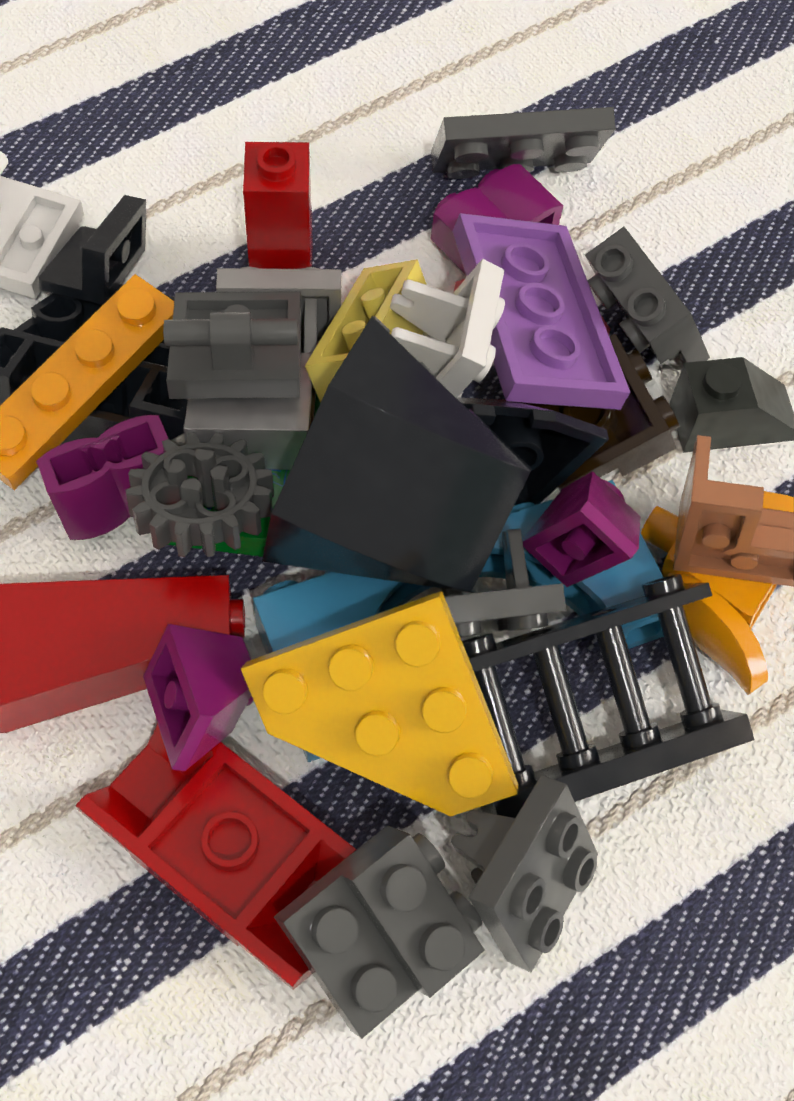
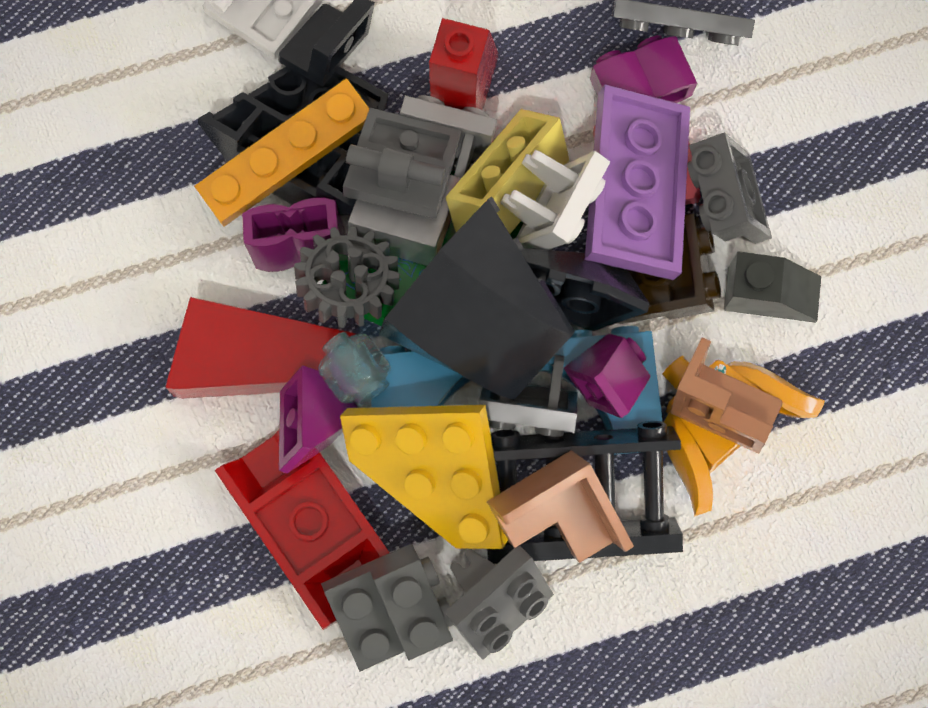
camera: 20 degrees right, 15 degrees up
(242, 607) = (354, 368): none -> clear light blue head
(592, 692) = (562, 495): none -> nougat panel

